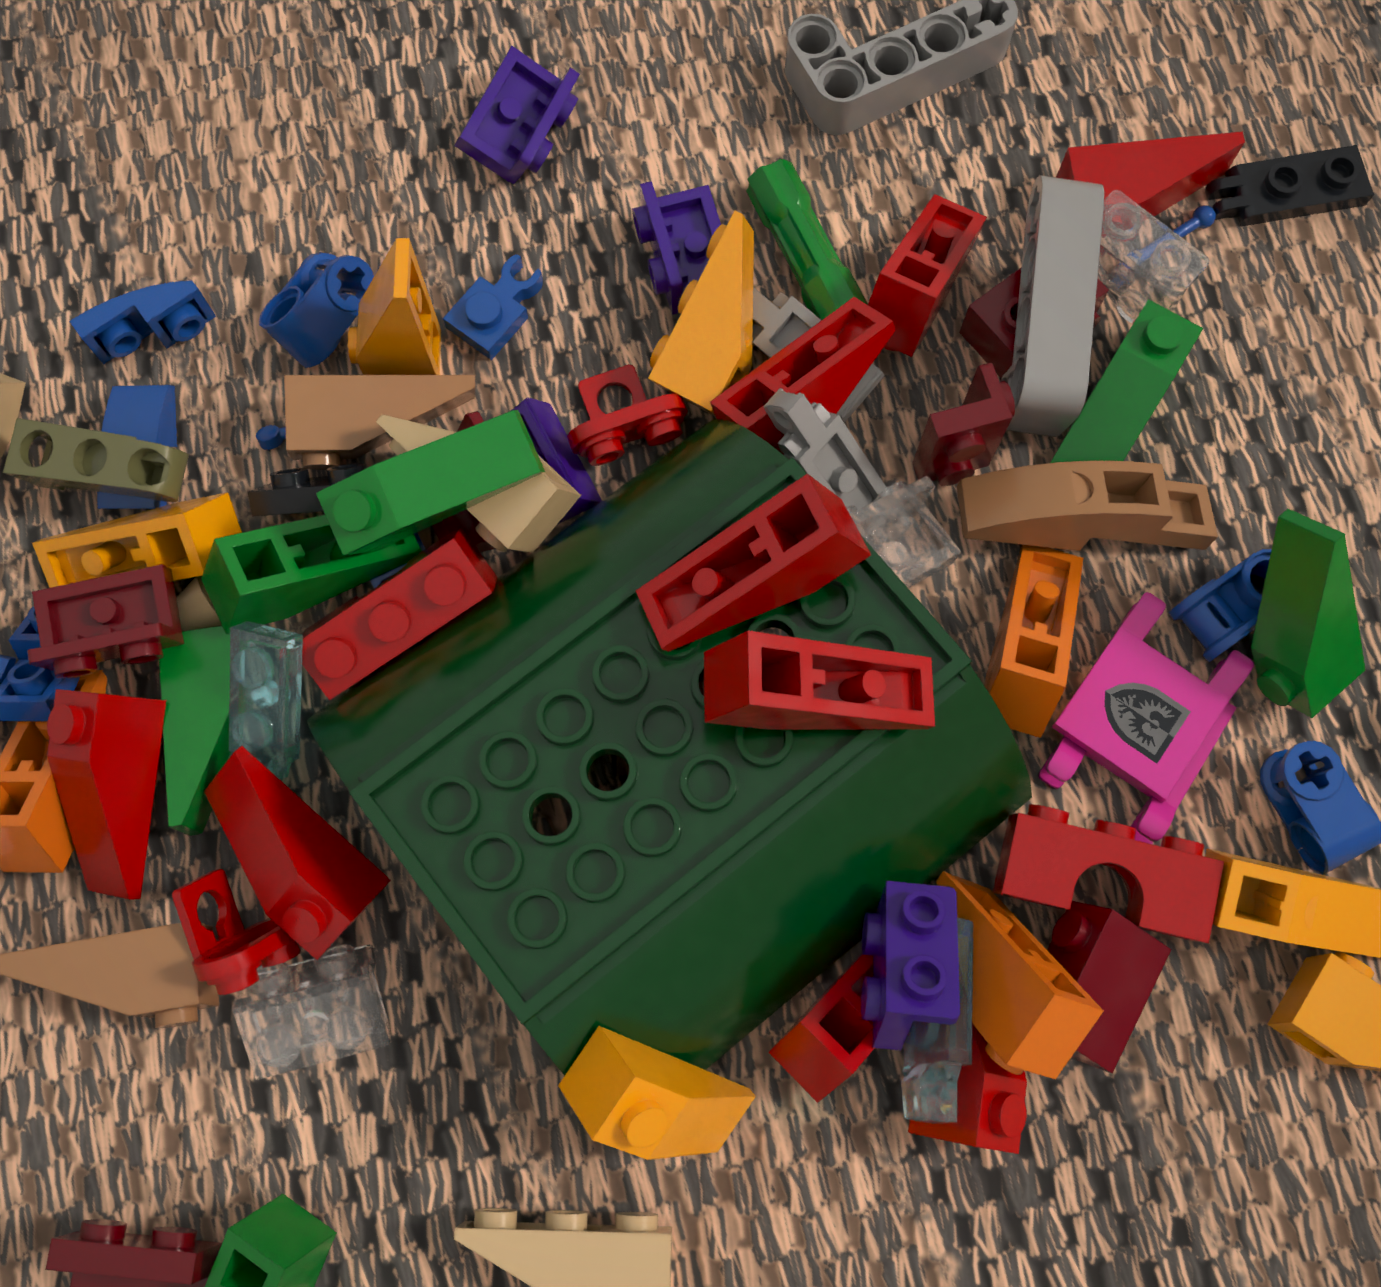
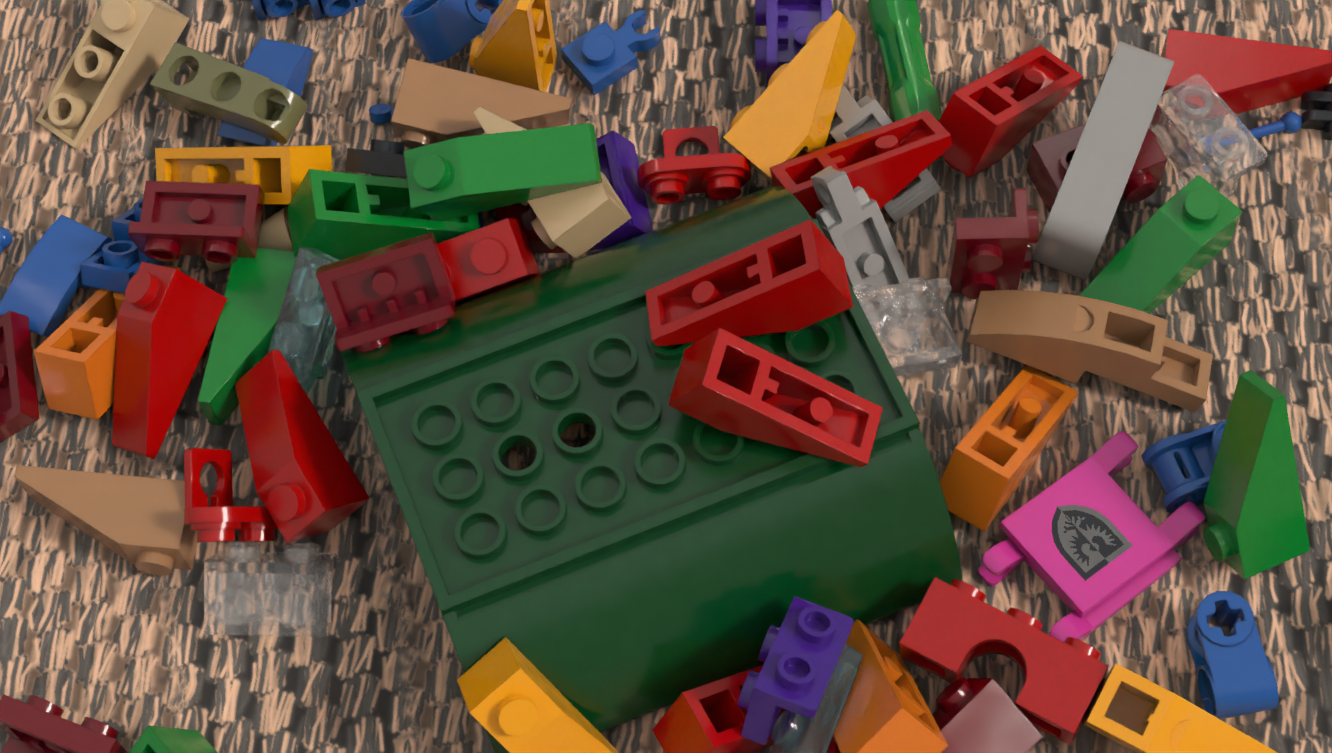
camera: 20 degrees right, 10 degrees down
(346, 660) = (387, 293): none -> dark red bracket

